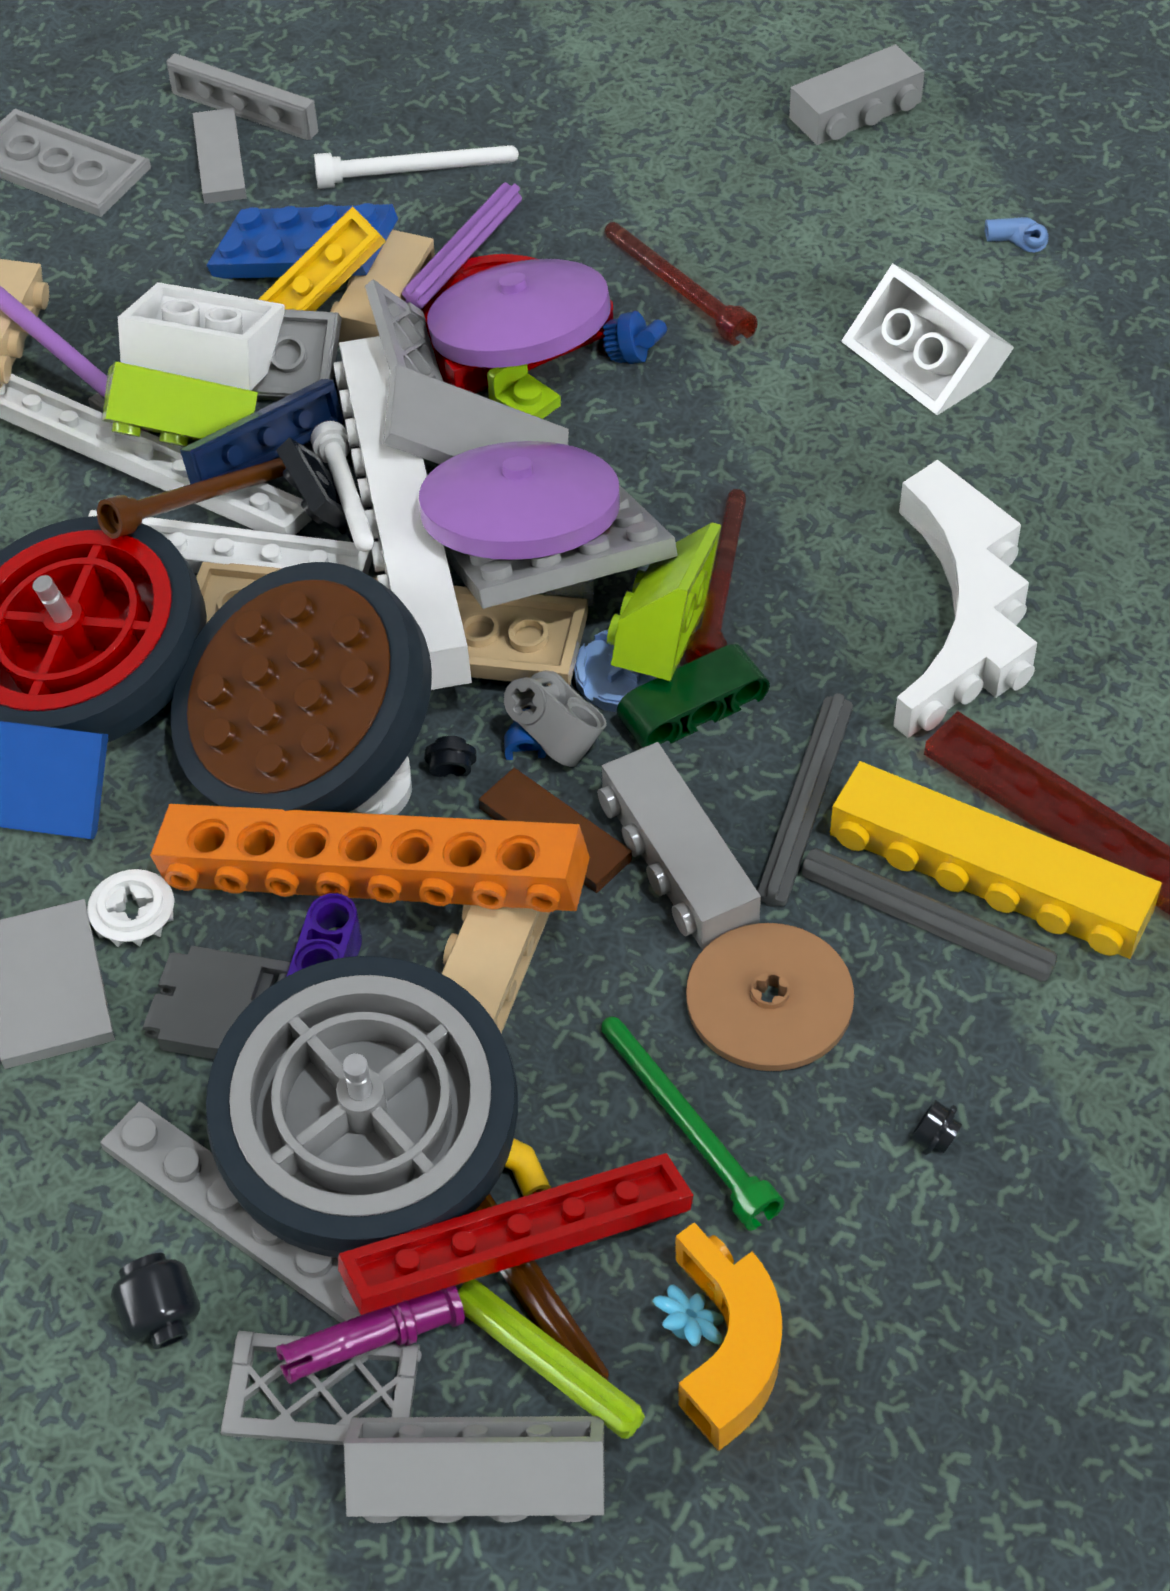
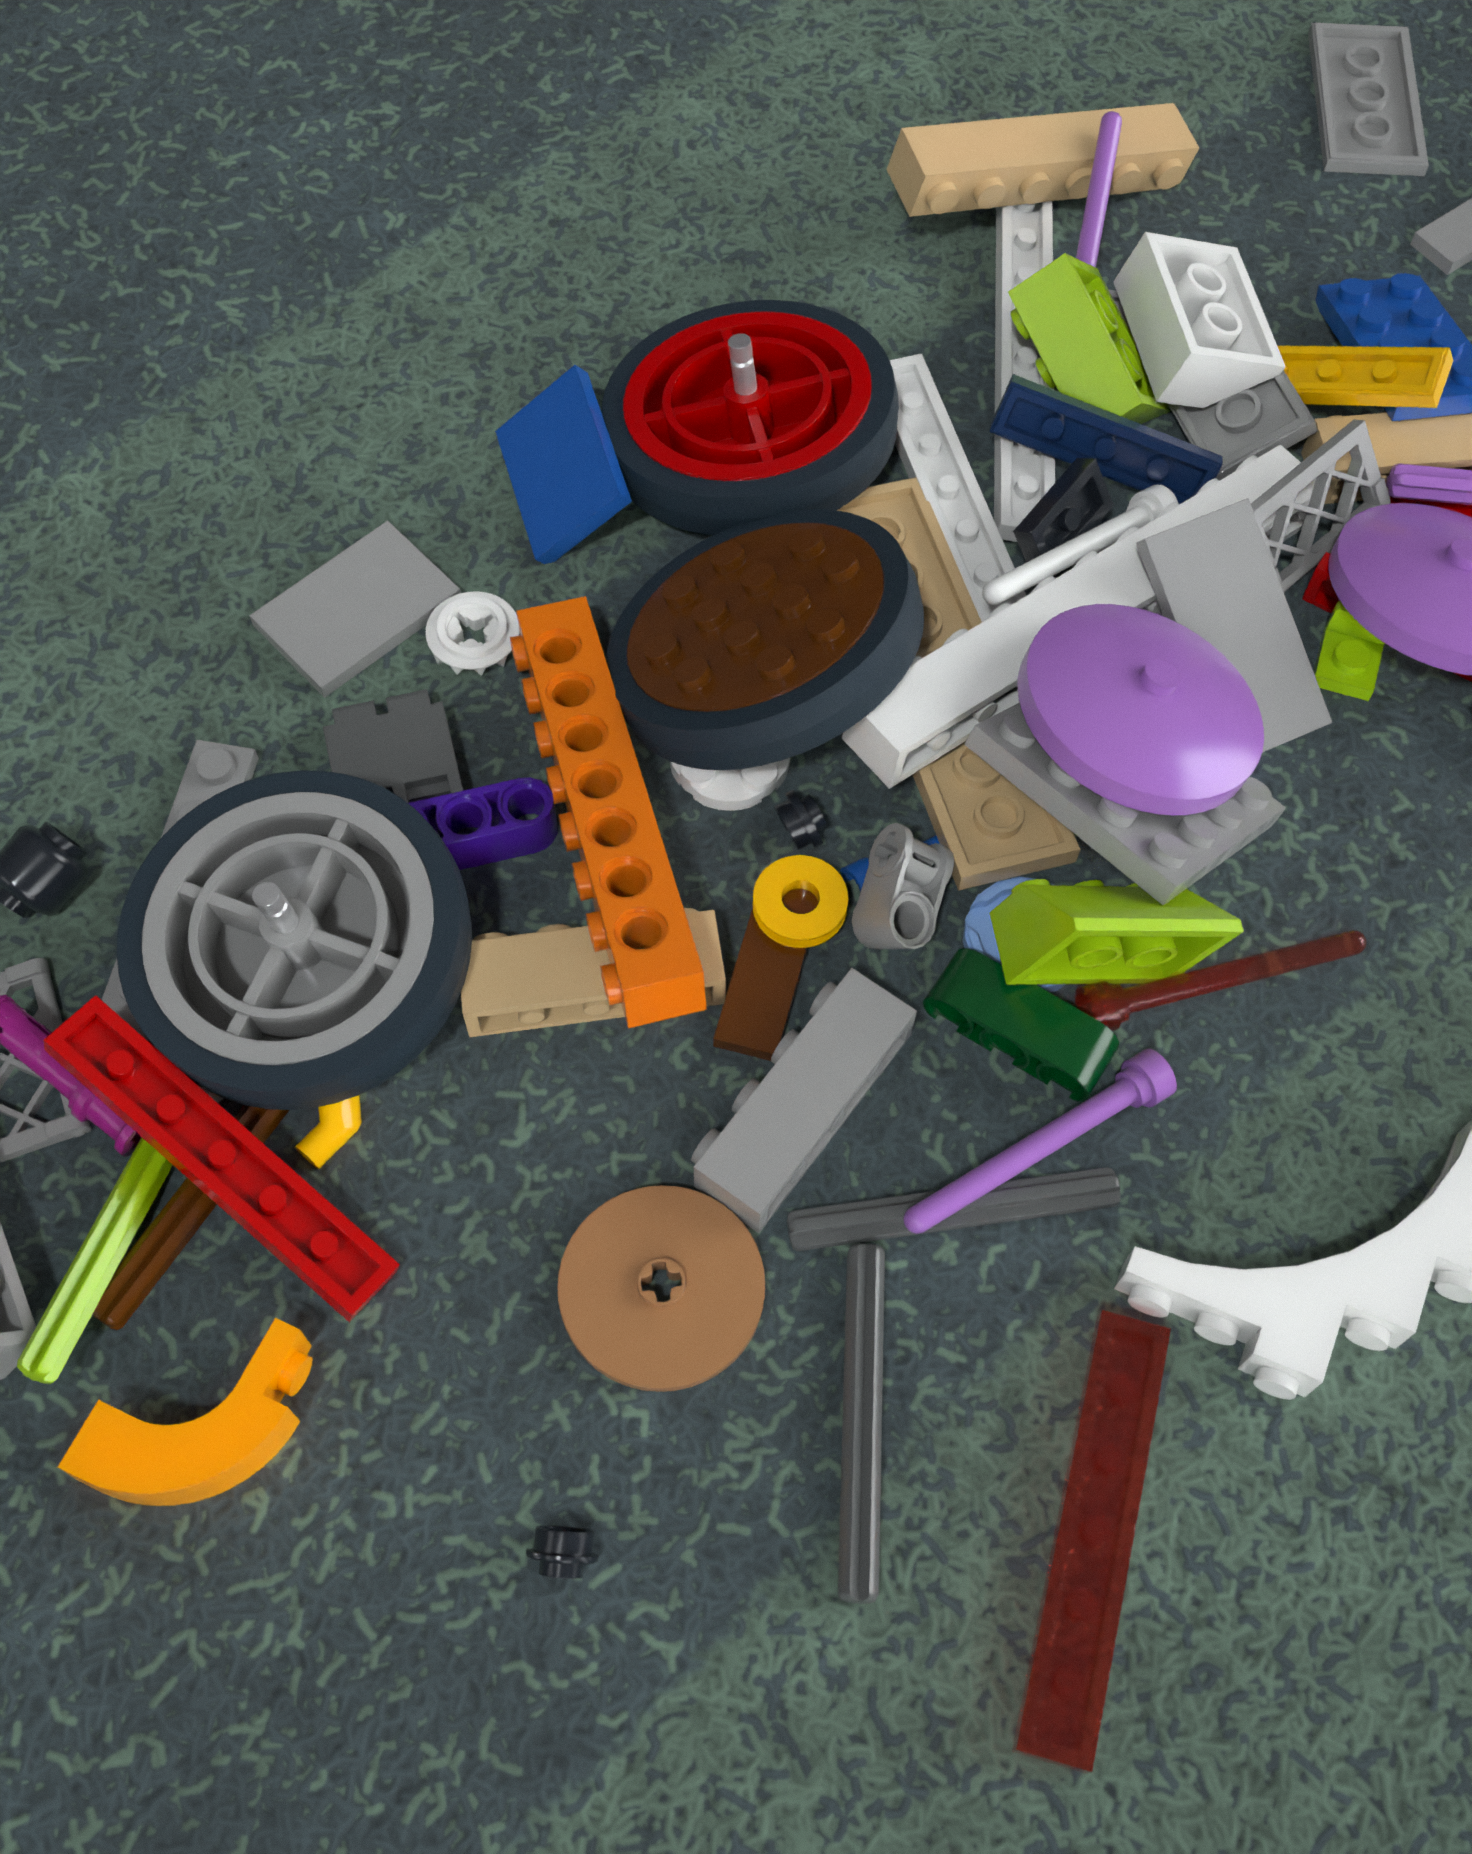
camera: 60 degrees right, 10 degrees up
(123, 514) = (886, 368): reddish brown piece -> none
(525, 803) = (800, 929): none -> yellow piece
(688, 1317) = (198, 1369): medium azure plant -> none
(748, 1193) = (387, 1376): green piece -> none
(774, 652) = (1142, 1081): none -> medium lavender piece
(994, 860) = (971, 1473): yellow brick -> none

